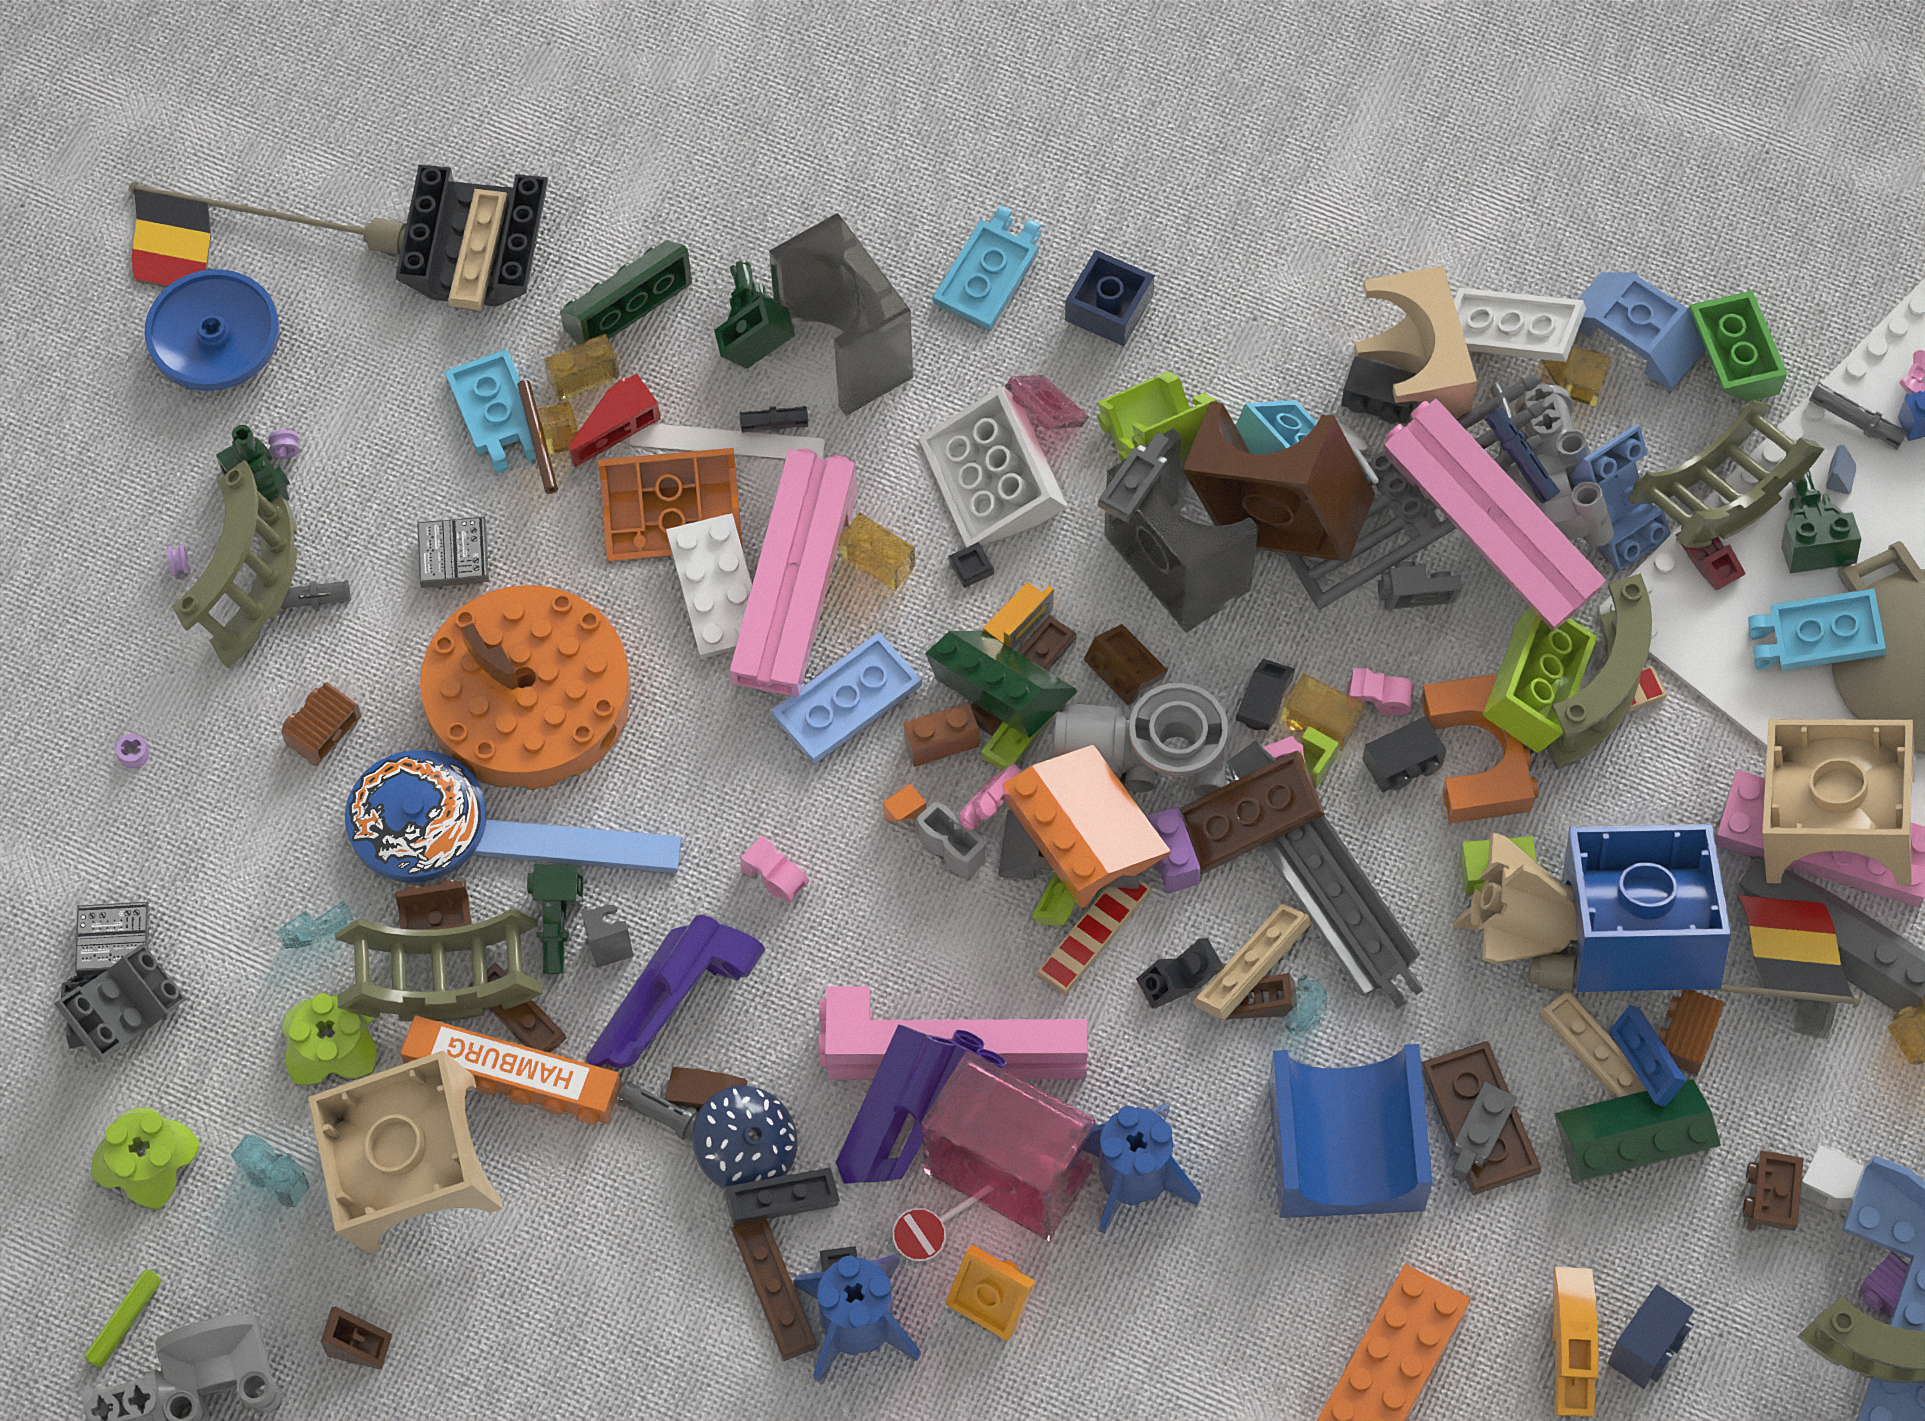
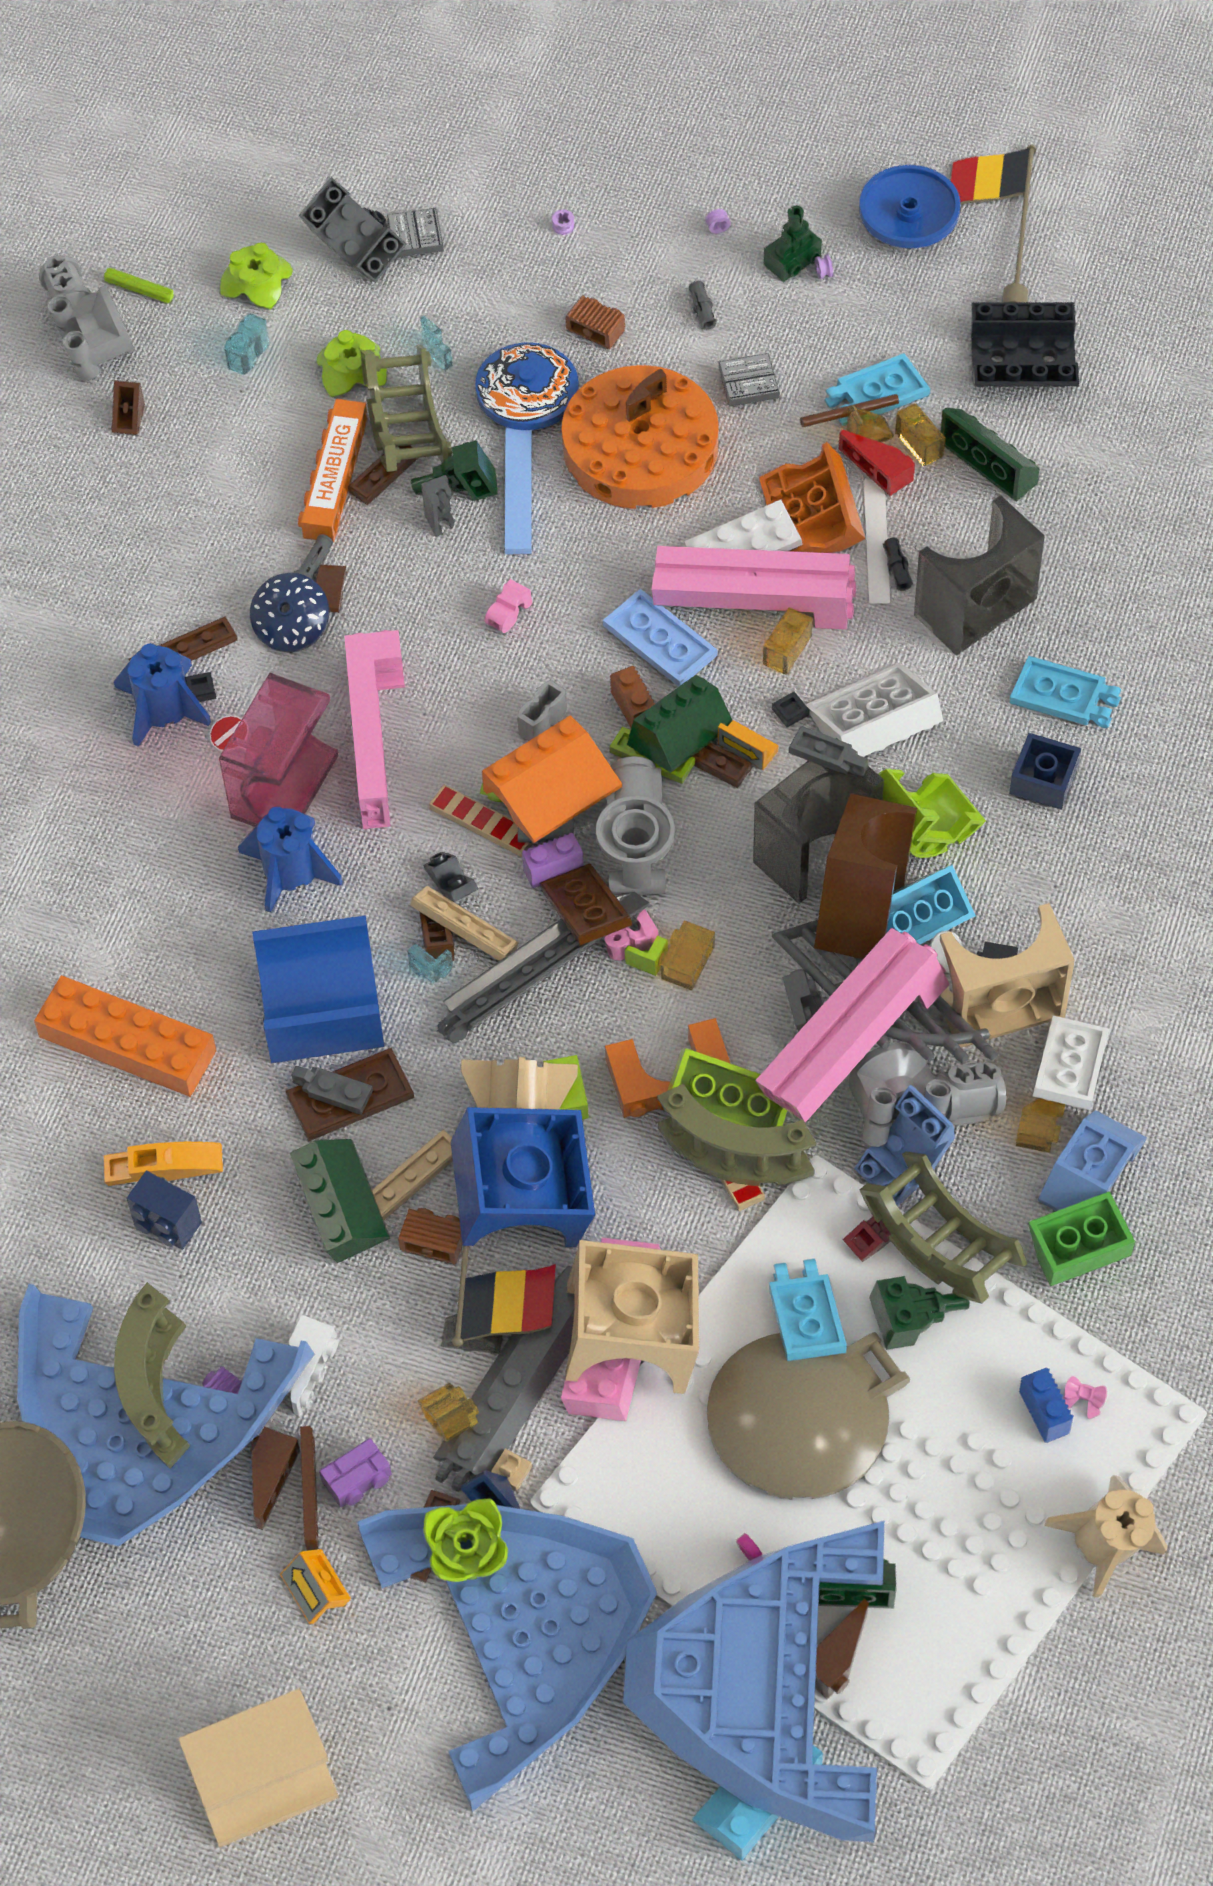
camera: 85 degrees right, 5 degrees down
(274, 570) = (705, 272): olive fence -> none
(399, 1148) = (249, 391): tan piece -> none
(434, 906) = (453, 409): reddish brown bracket -> none
(478, 249) = (1009, 352): tan tile -> none
(666, 982) = (434, 562): dark purple panel -> none
(754, 322) = (966, 532): dark green brick -> none
(781, 1196) = (247, 639): black plate -> none
(903, 805) = (571, 680): orange slope -> none
(905, 1083) = (342, 708): dark purple panel -> none
(987, 799) = (557, 714): bright pink hinge -> none
(990, 1292) = (180, 773): light orange tile -> none
(1046, 401) = (938, 735): clear pink plate -> none
(1124, 663) = (716, 817): reddish brown bracket -> none
(1264, 695) = (699, 911): black slope -> none
(1388, 694) = (710, 992): bright pink leg -> none
(1404, 755) = (656, 1015): black brick -> none
(1529, 465) = (932, 1014): dark blue pin -> none
(1647, 1055) = (401, 1198): blue plate -> none
(1773, 1191) = (292, 1299): reddish brown bracket -> none
(1841, 471) = (974, 1332): sand blue slope -> none
(1863, 418) = (1028, 1353): dark grey pin -> none

